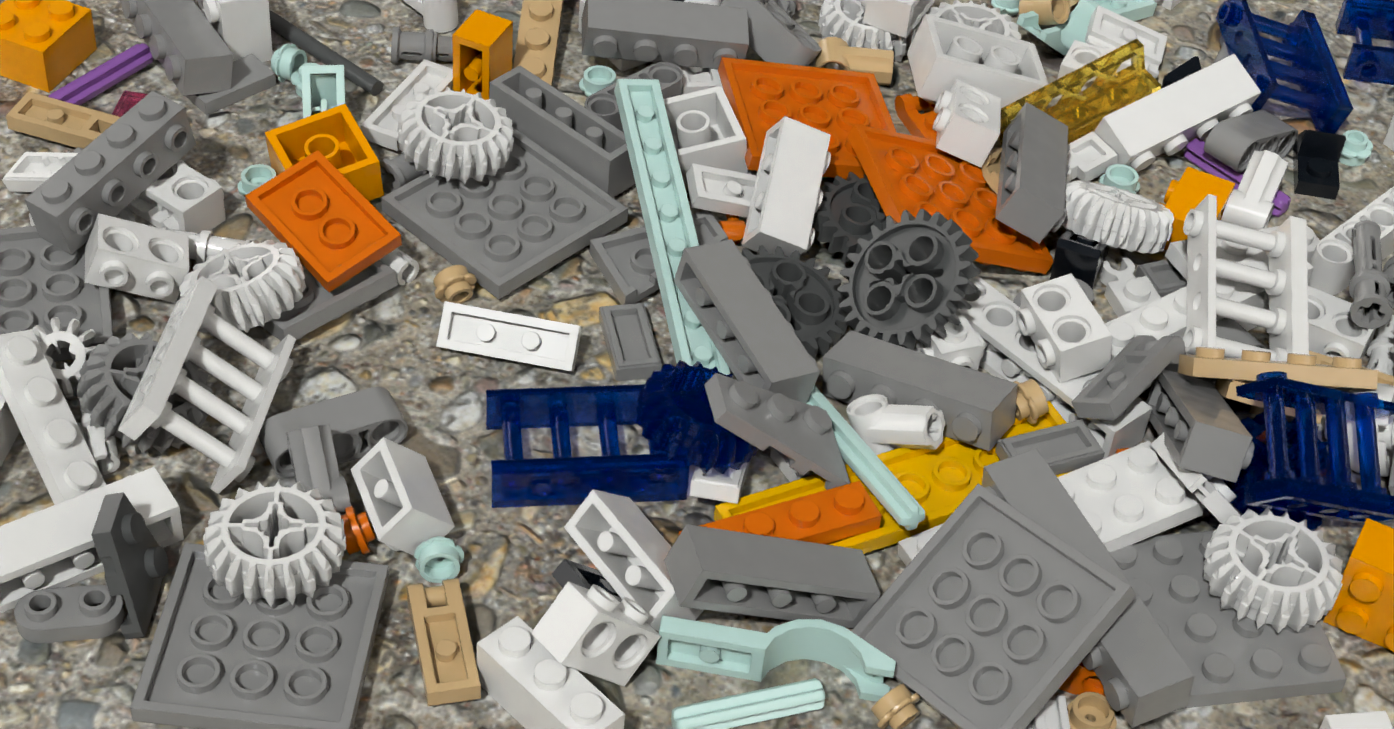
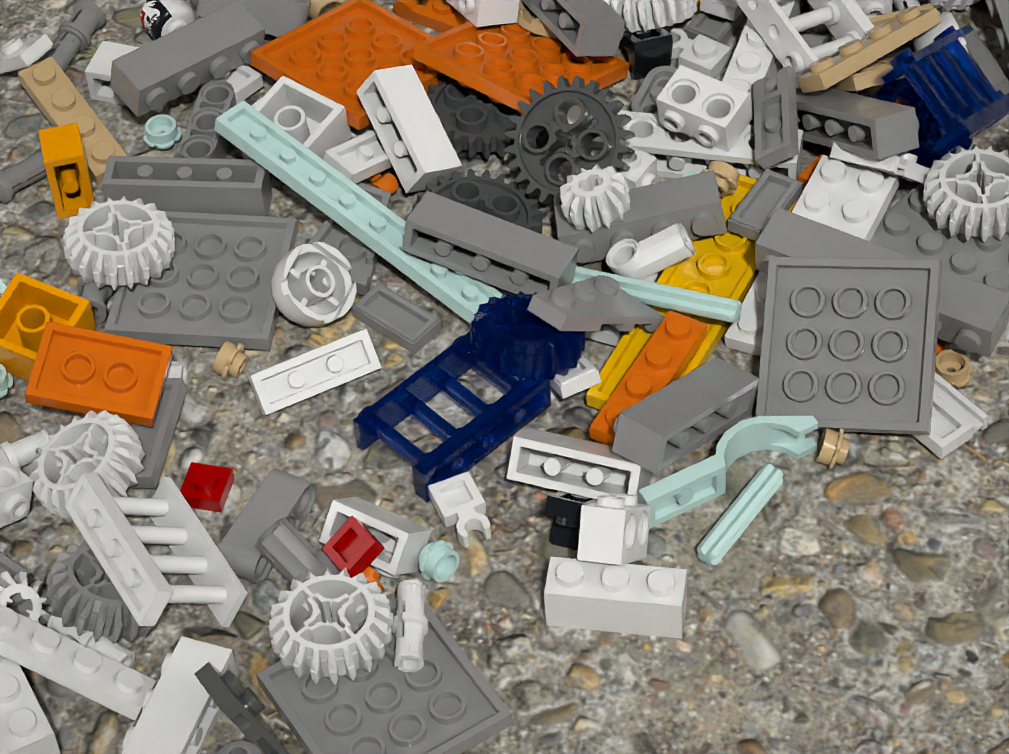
camera: 30 degrees left, 5 degrees up
(327, 371) = (207, 486): none -> red plate
(341, 591) = (410, 626): none -> white pin
(358, 488) = (353, 547): none -> red plate
(383, 122) = (38, 238): white plate -> none
(443, 643) = (502, 612): tan plate -> none
(506, 524) = (461, 505): none -> white plate
(575, 263) = (313, 285): none -> white cylinder
(880, 339) = (595, 198): none -> white gear

